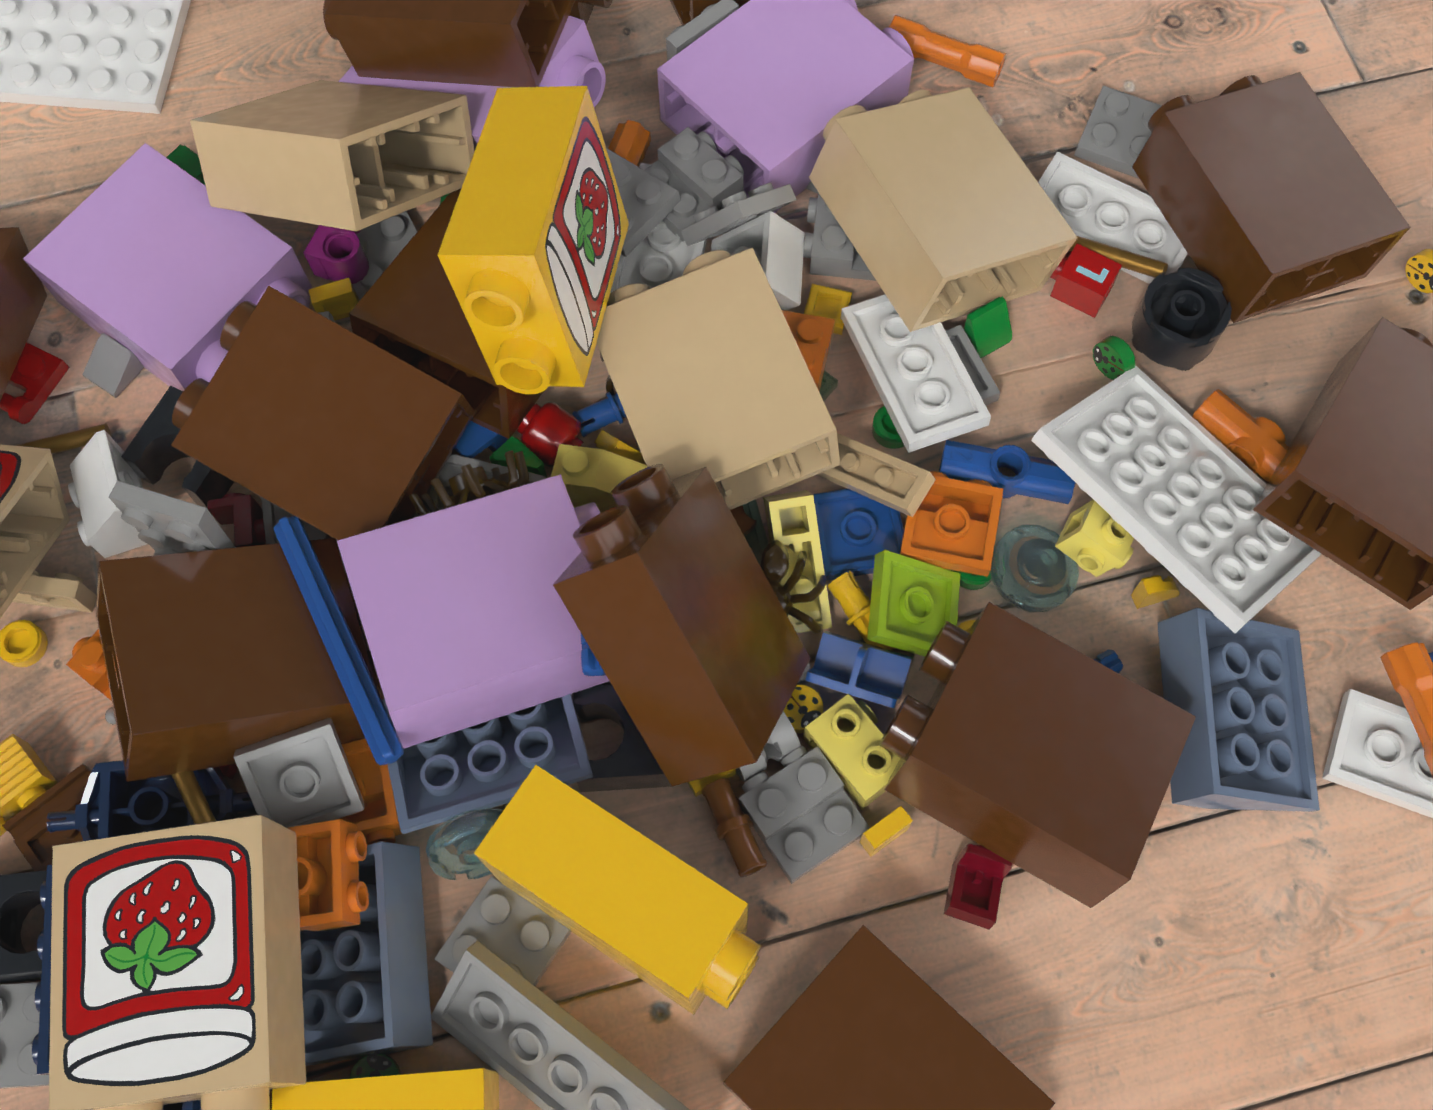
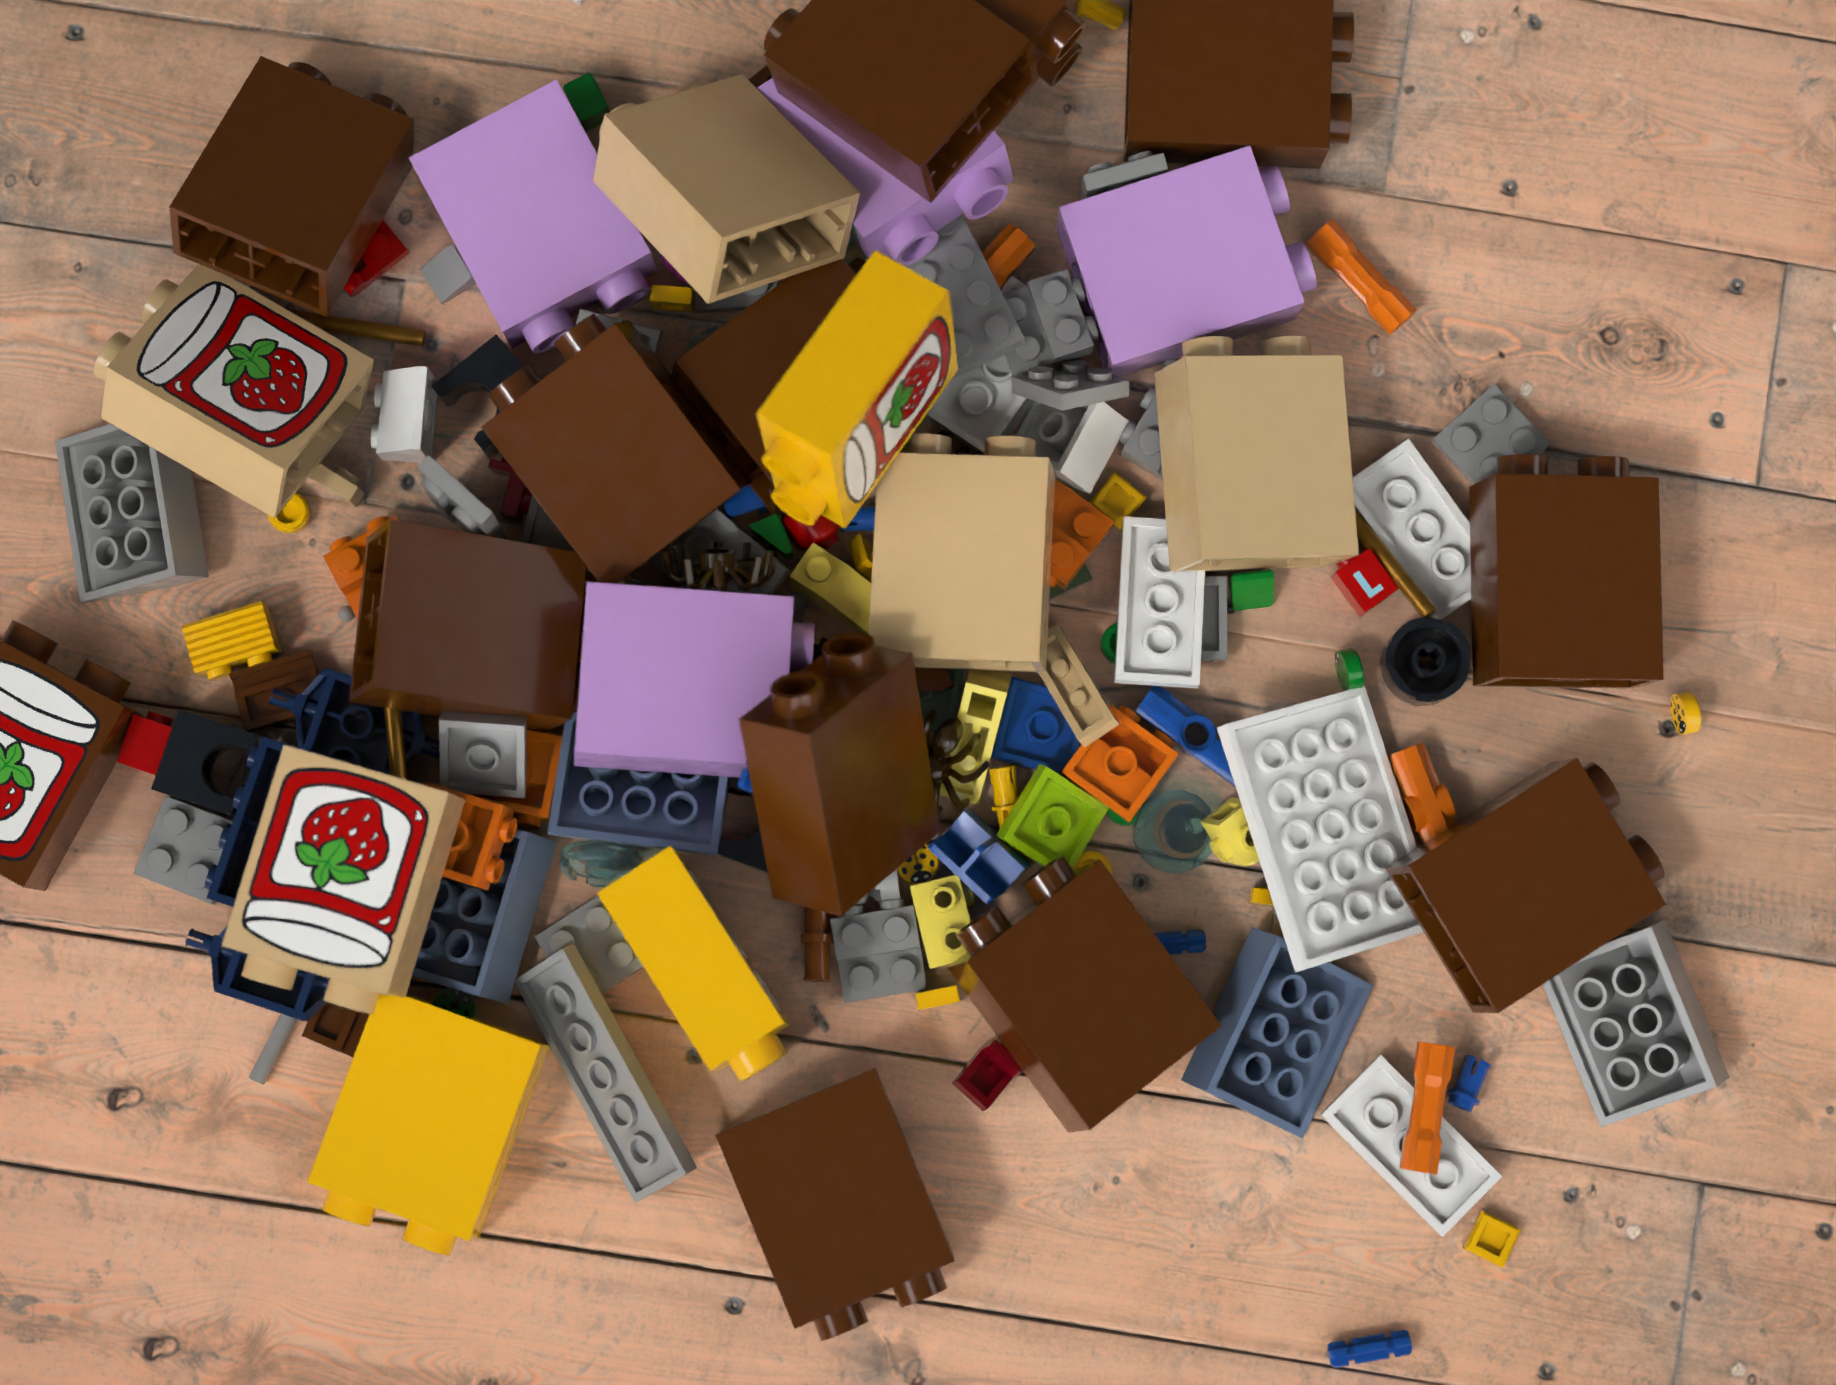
camera: 25 degrees right, 15 degrees up
(339, 641) = (556, 655): blue axle -> none

